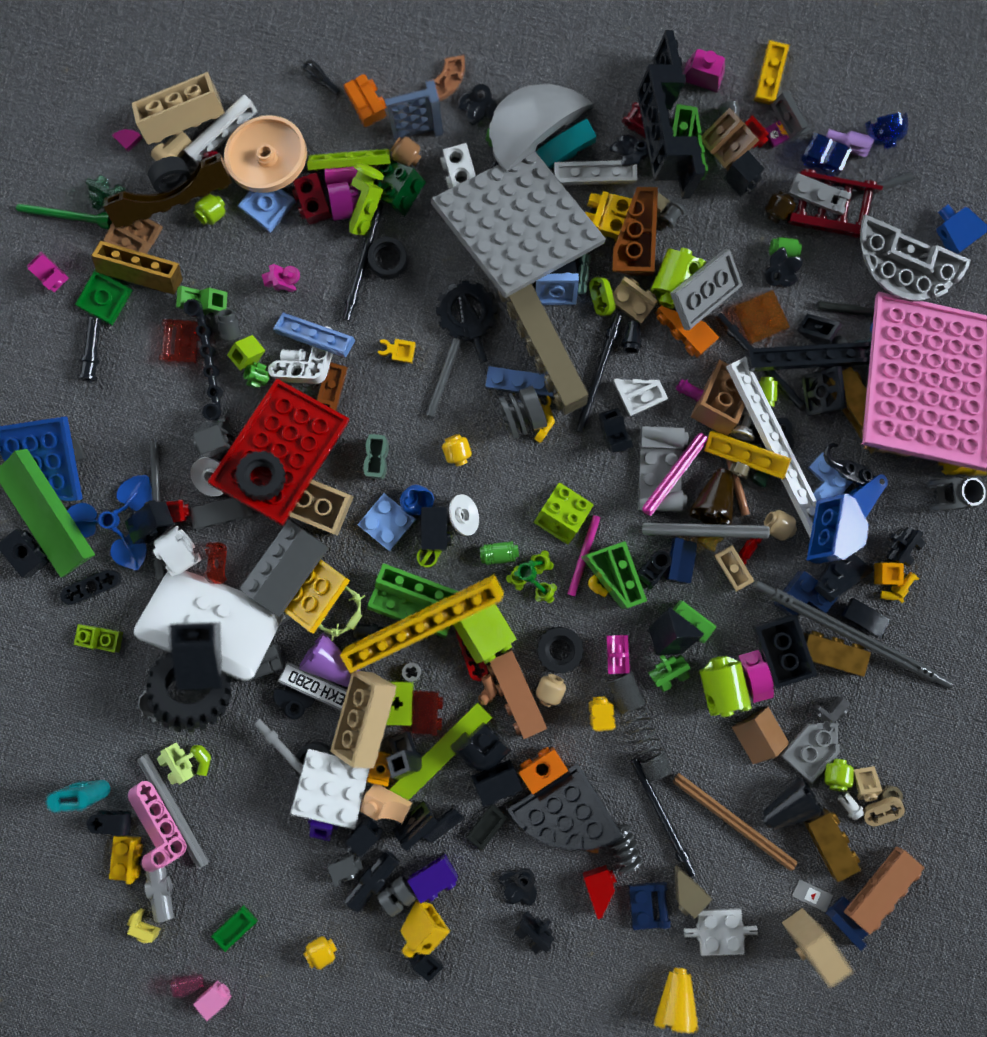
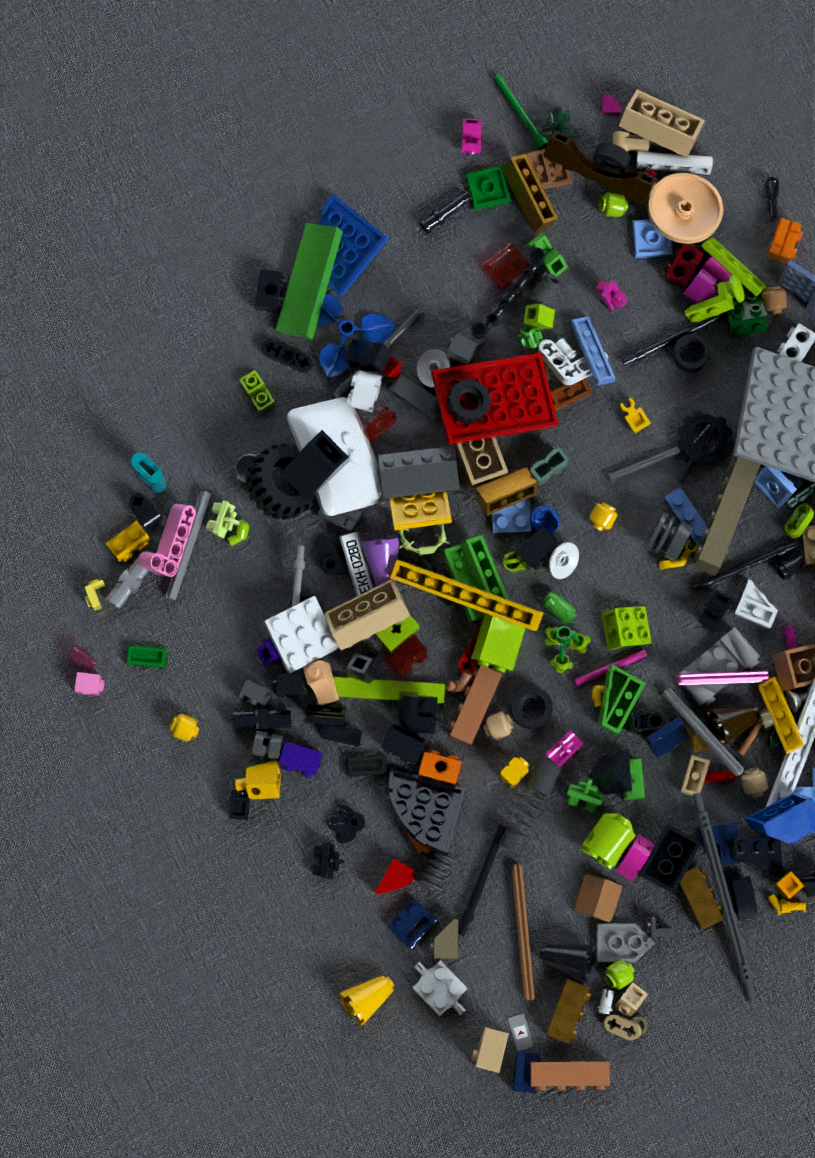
camera: 45 degrees right, 5 degrees down
(365, 510) = (506, 491): none -> pearl gold brick
(380, 778) = (335, 661): light orange brick -> none
(412, 678) = (428, 616): light grey bush -> none

